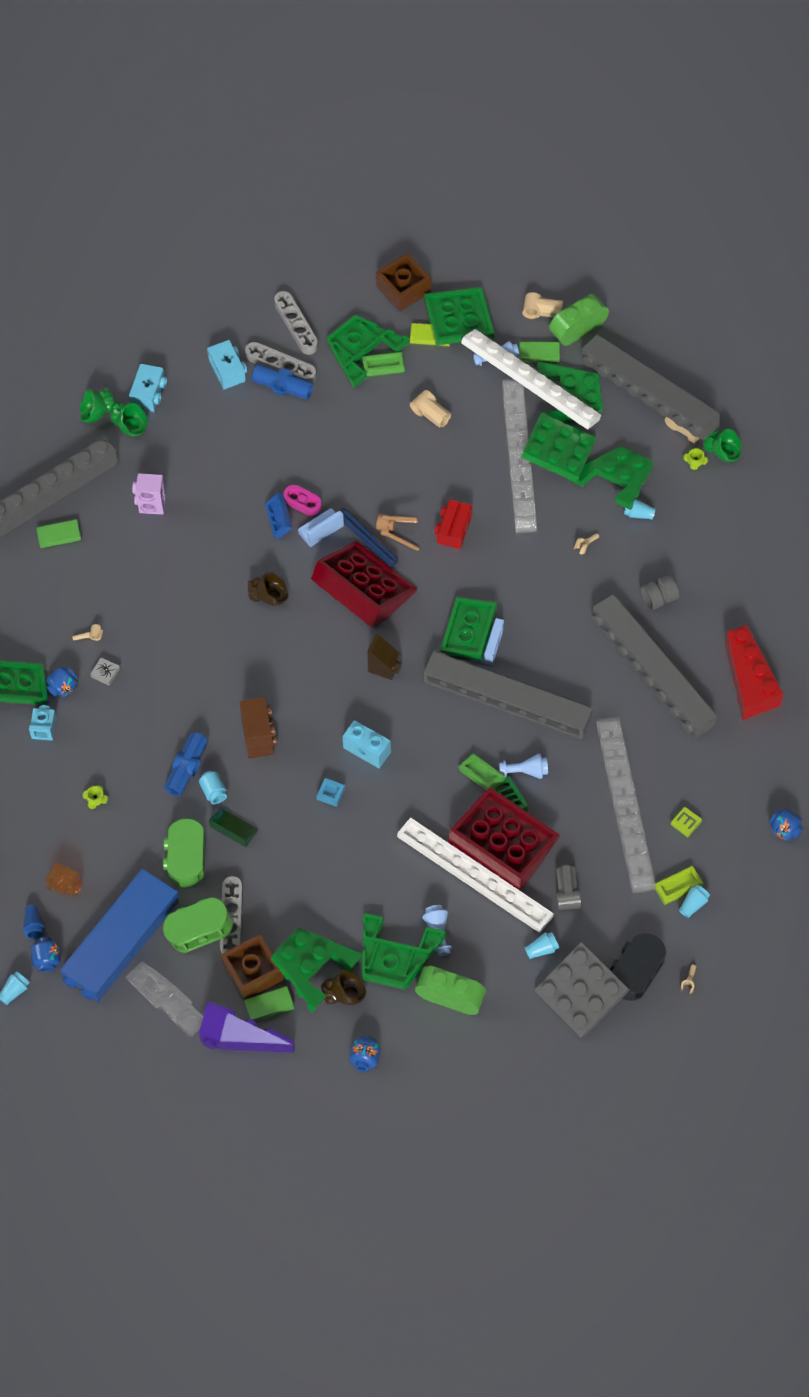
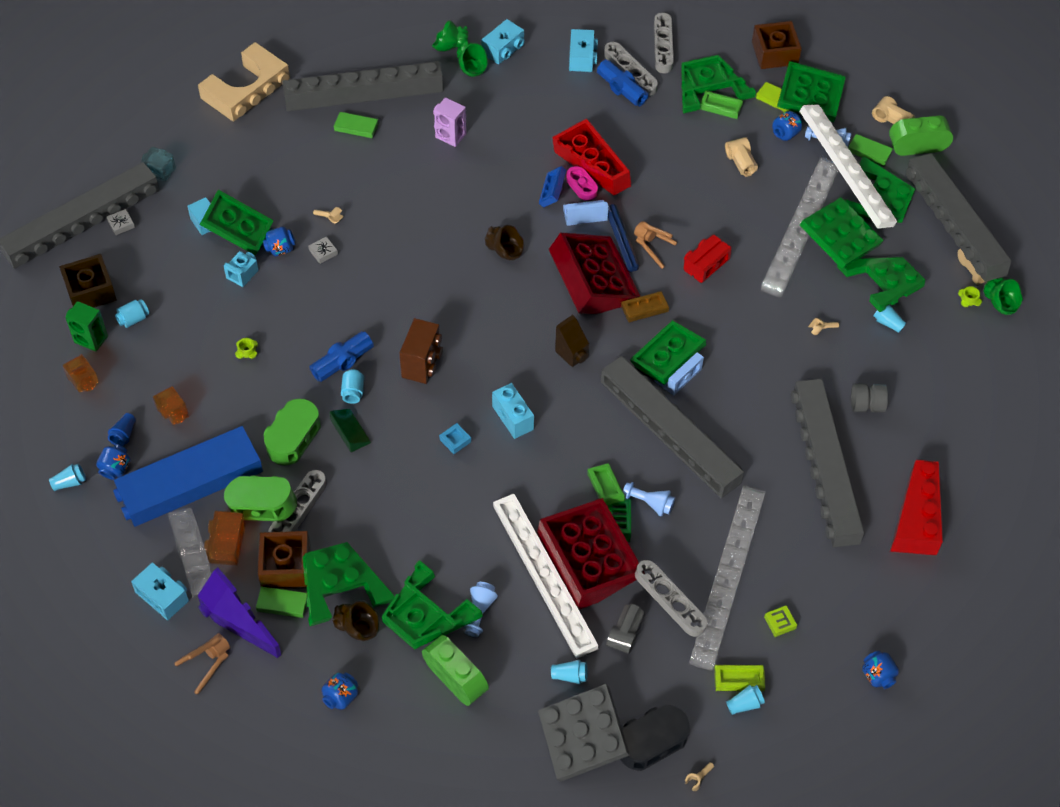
camera: 25 degrees right, 5 degrees down
(168, 1053) = (160, 590): none -> medium azure brick
(187, 972) = (225, 538): none -> clear orange brick
(236, 1070) = (214, 648): none -> medium nougat plant
(290, 466) = (587, 149): none -> red wedge
(424, 594) = (645, 306): none -> pearl gold plate
(455, 360) = (787, 125): none -> blue head
(594, 842) = (668, 599): none -> light grey beam

